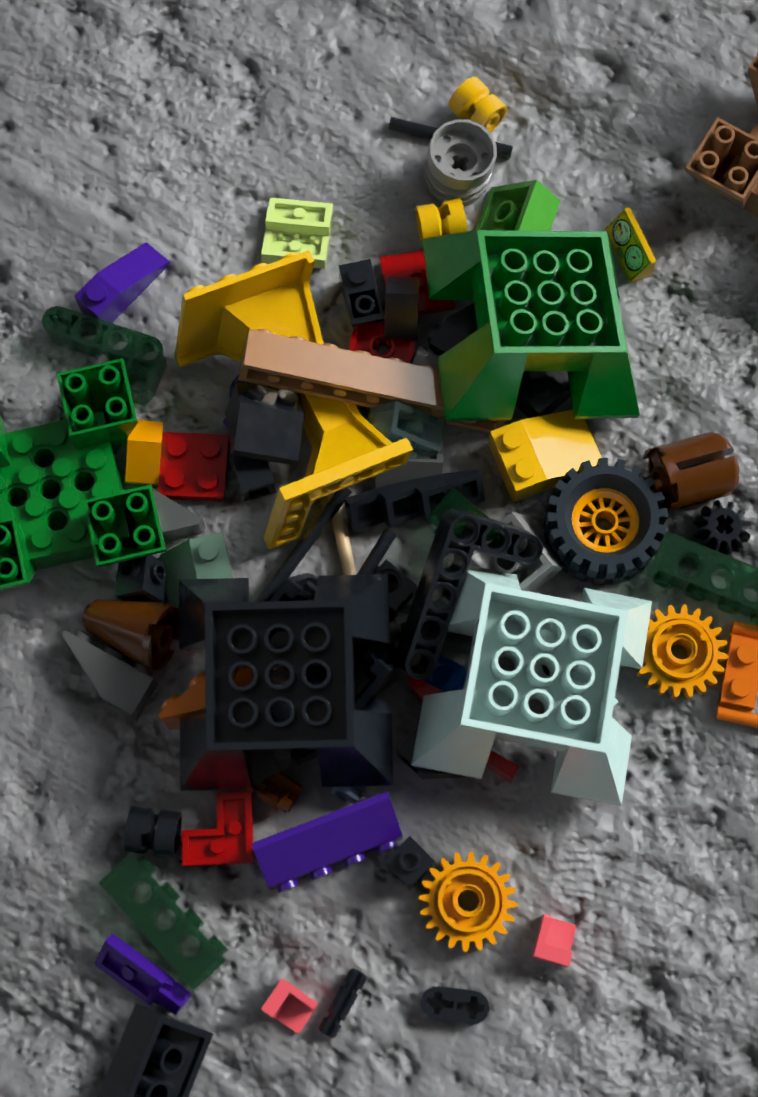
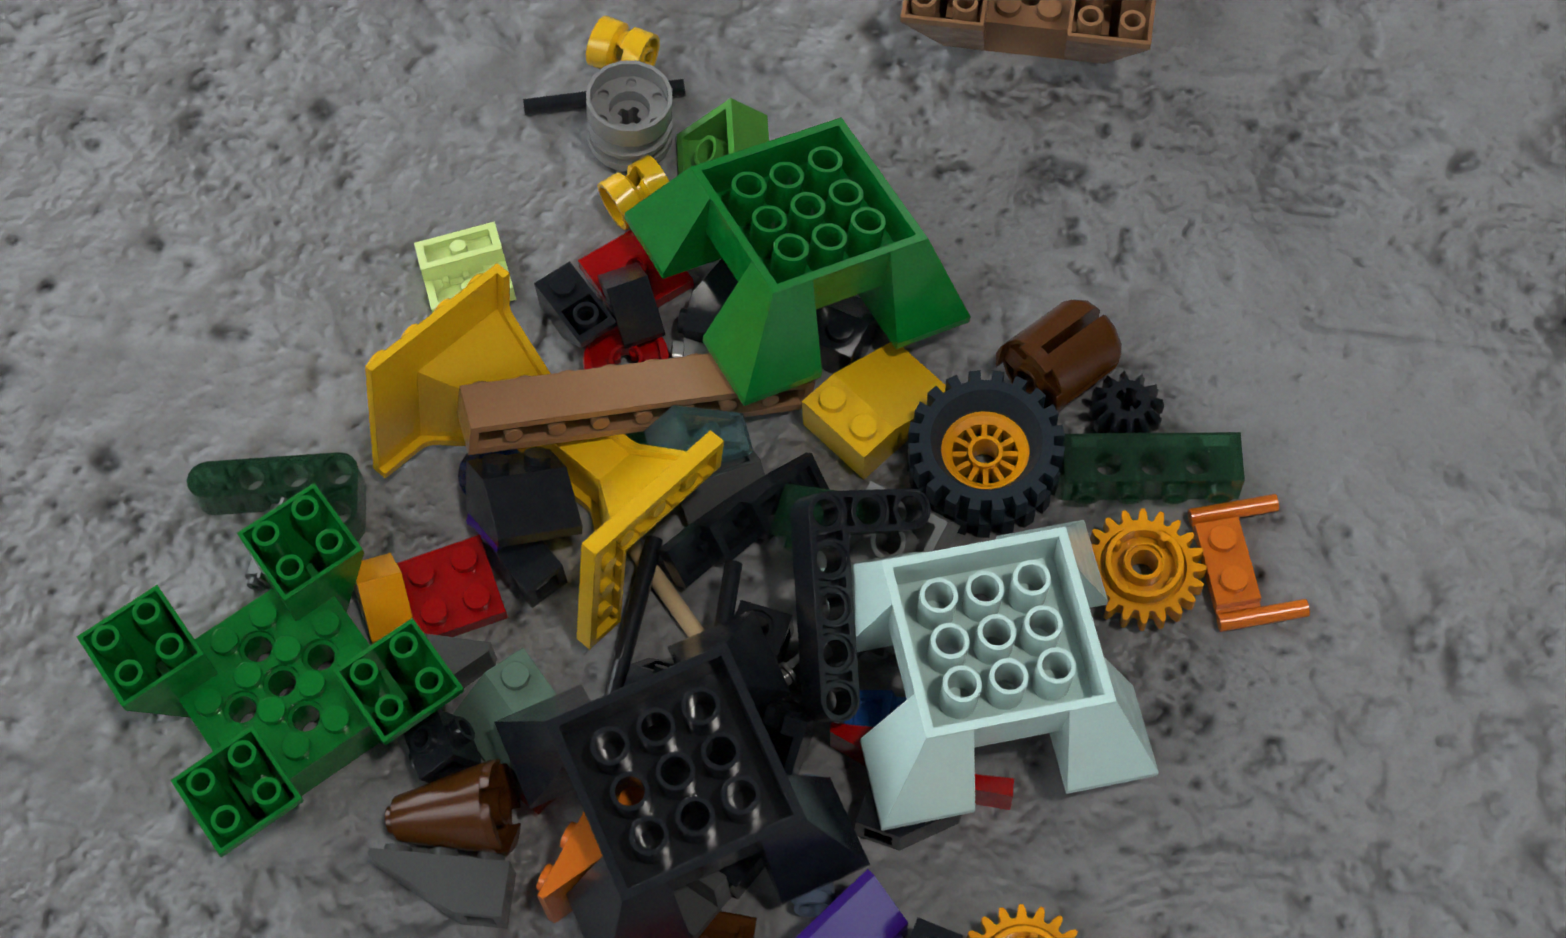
camera: 20 degrees left, 10 degrees down
(120, 283) = (269, 408): dark purple slope -> none
(630, 246) = (878, 136): slope -> none

